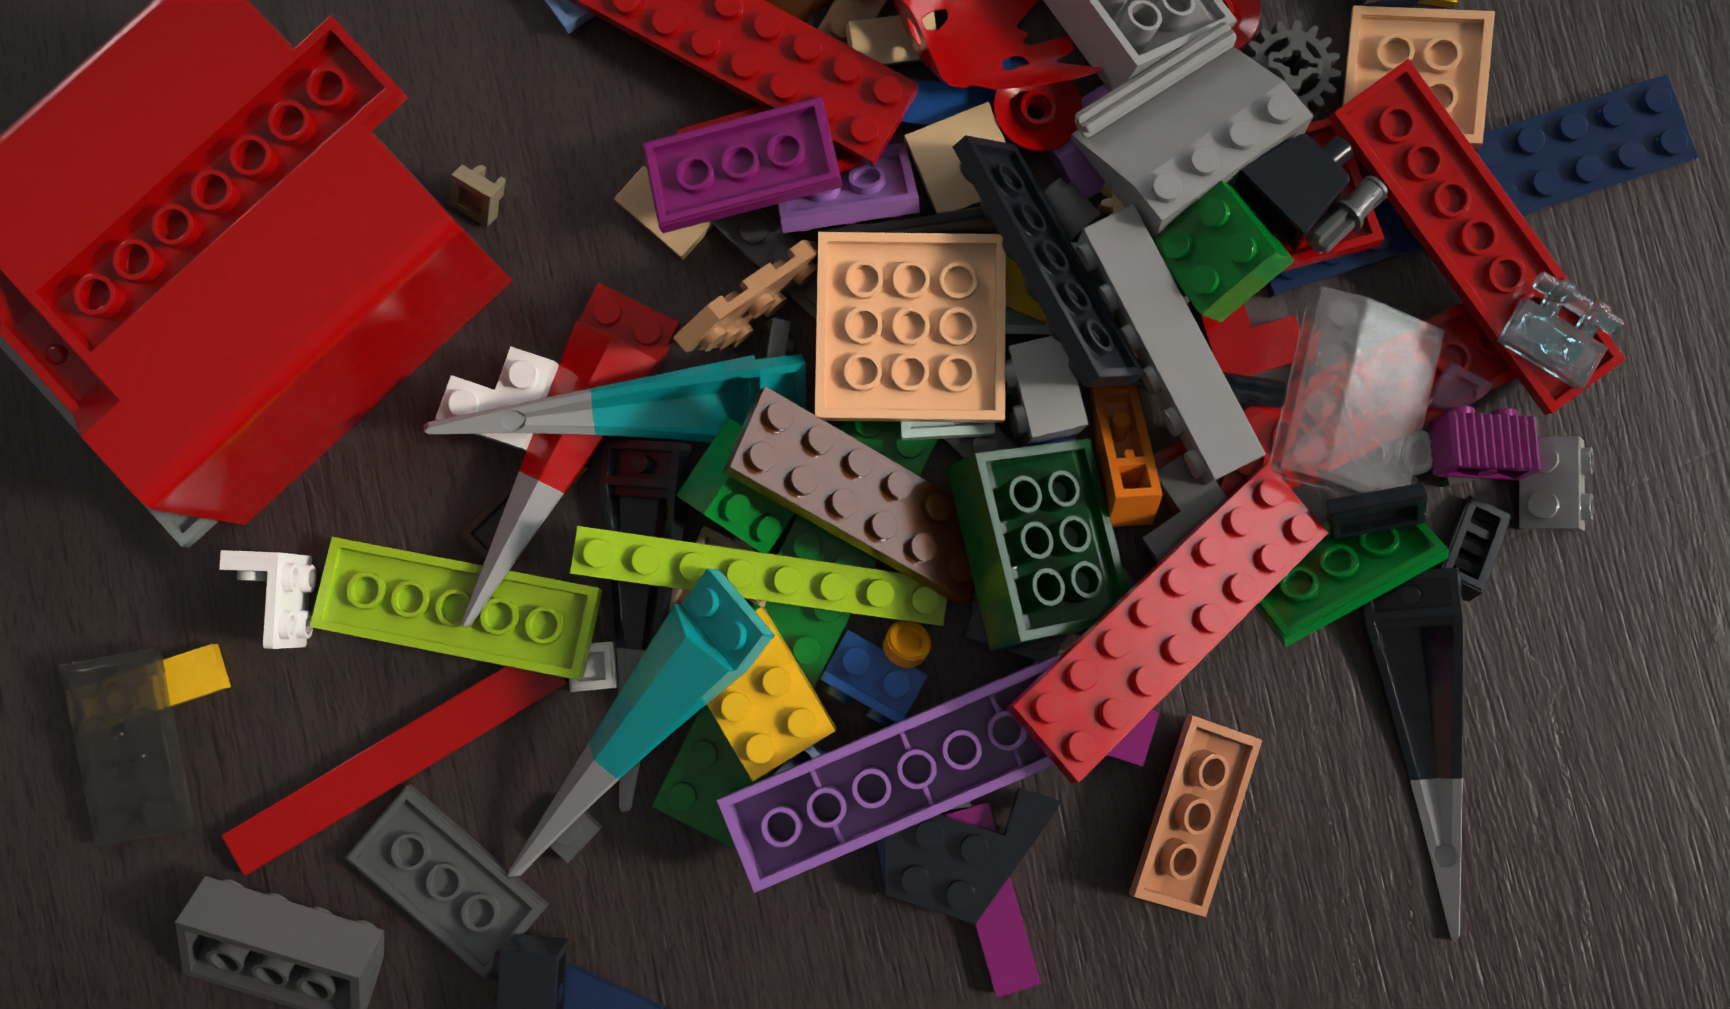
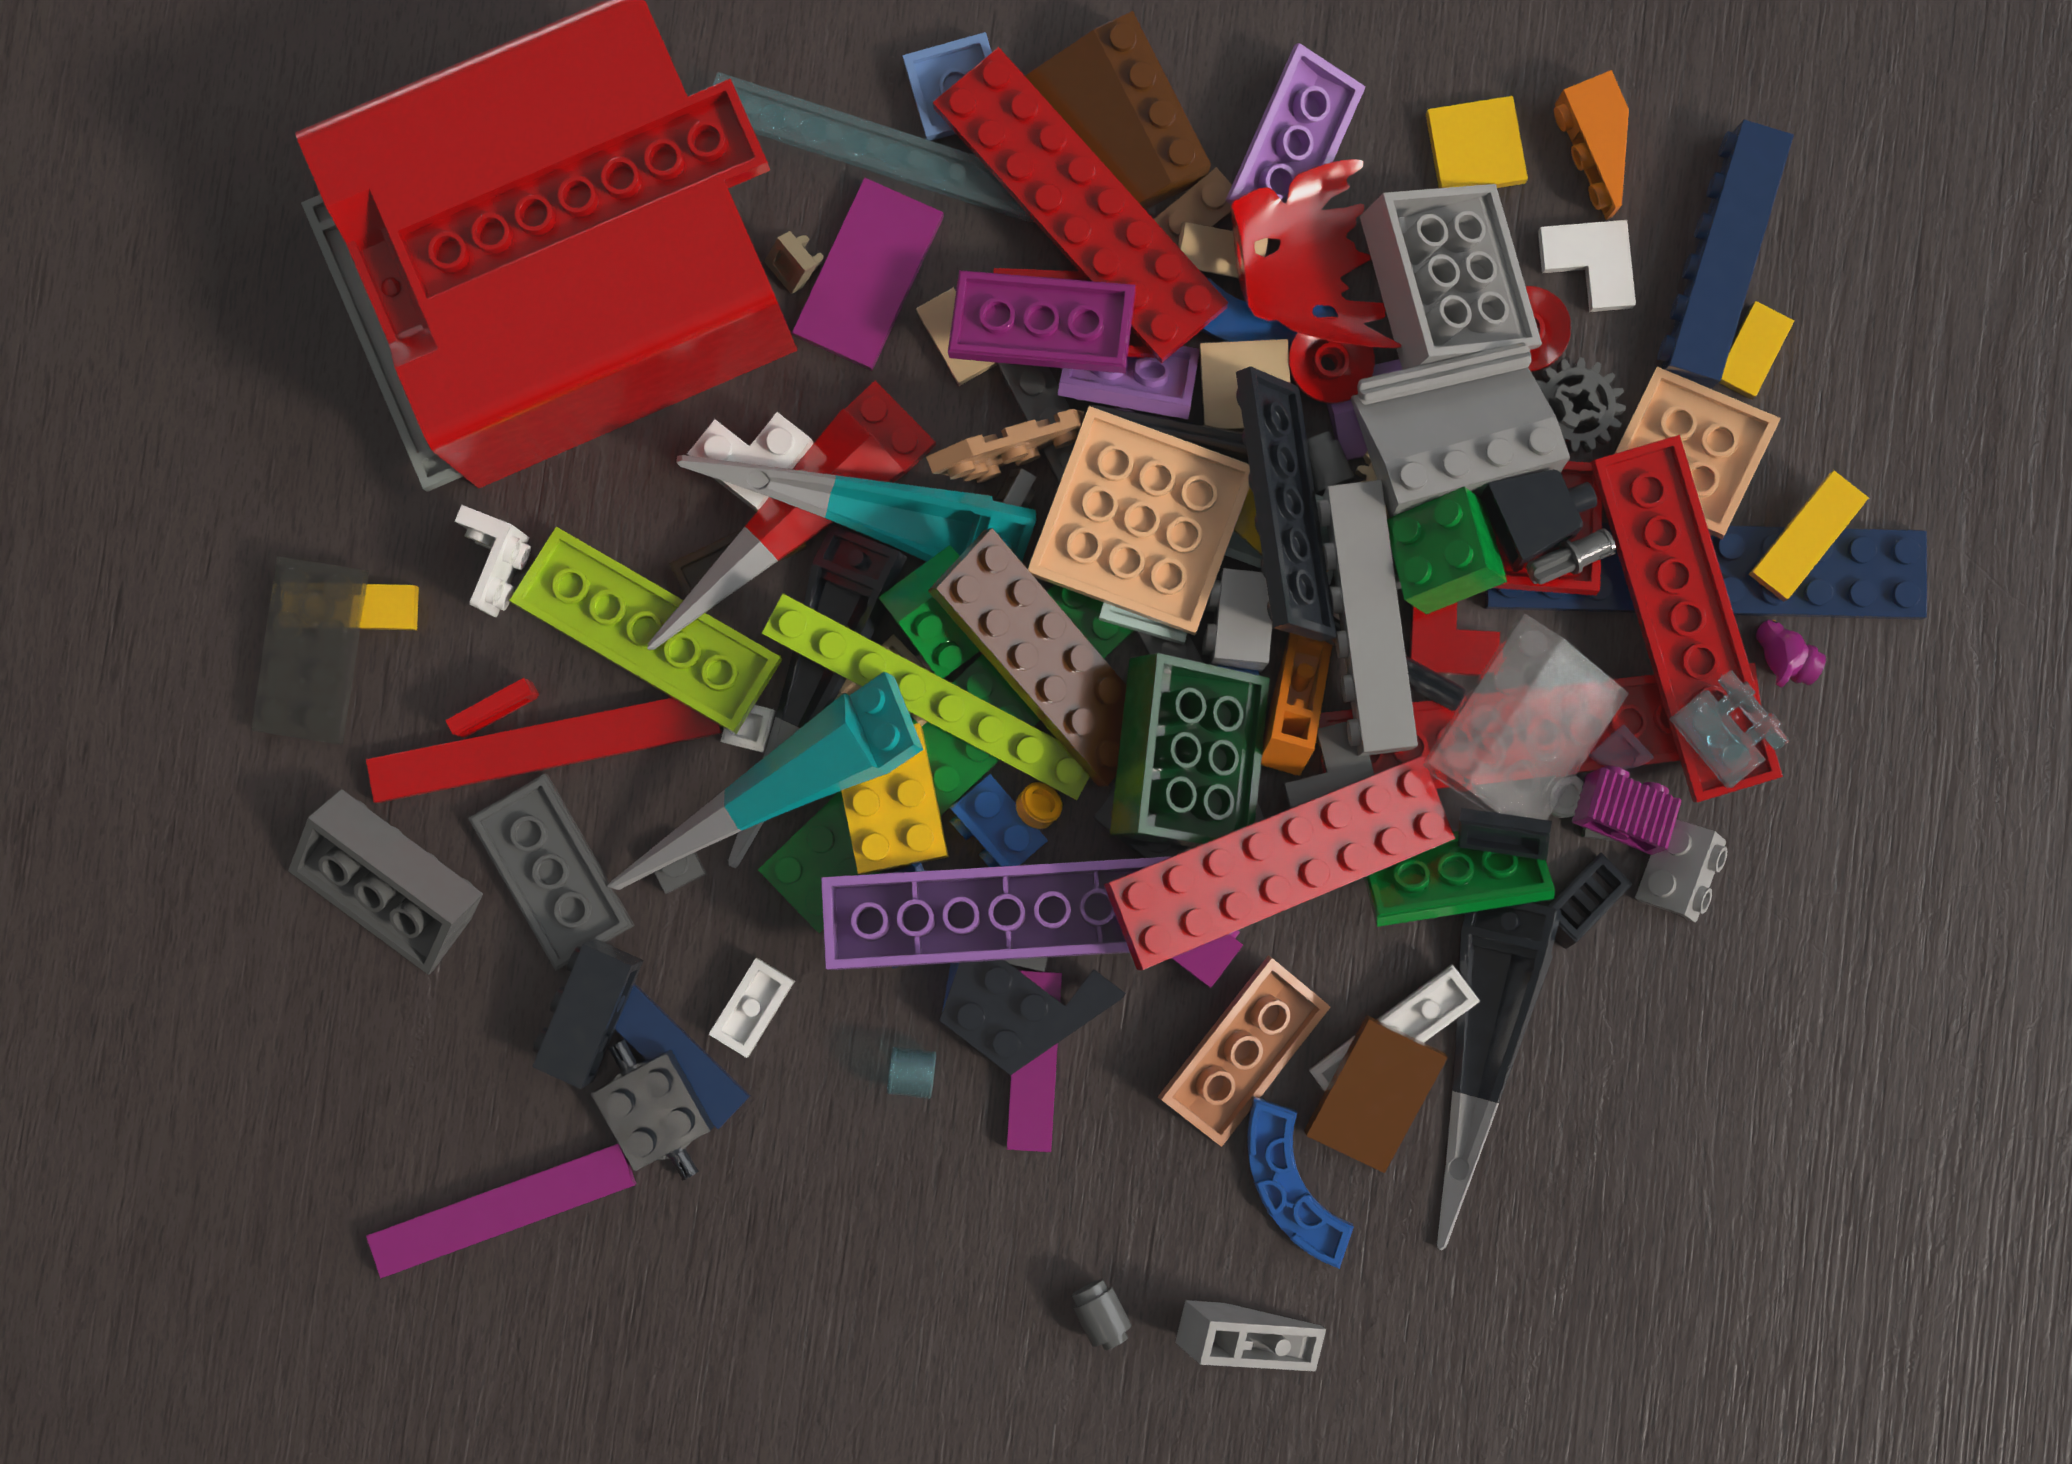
camera: 20 degrees right, 0 degrees up
(330, 740) = (492, 708): none -> red tile
(518, 56) = (873, 147): none -> clear light blue plate
(555, 181) = (868, 274): none -> magenta tile
(693, 946) = (751, 1007): none -> white plate
(875, 955) = (911, 1073): none -> clear light blue piece
(1281, 939) = (1283, 1190): none -> blue tile
(1336, 746) = (1417, 1015): none -> white tile
(1340, 812) = (1375, 1094): none -> reddish brown tile
(1561, 117) = (1808, 536): none -> yellow tile
(1582, 238) = (1789, 654): none -> magenta animal

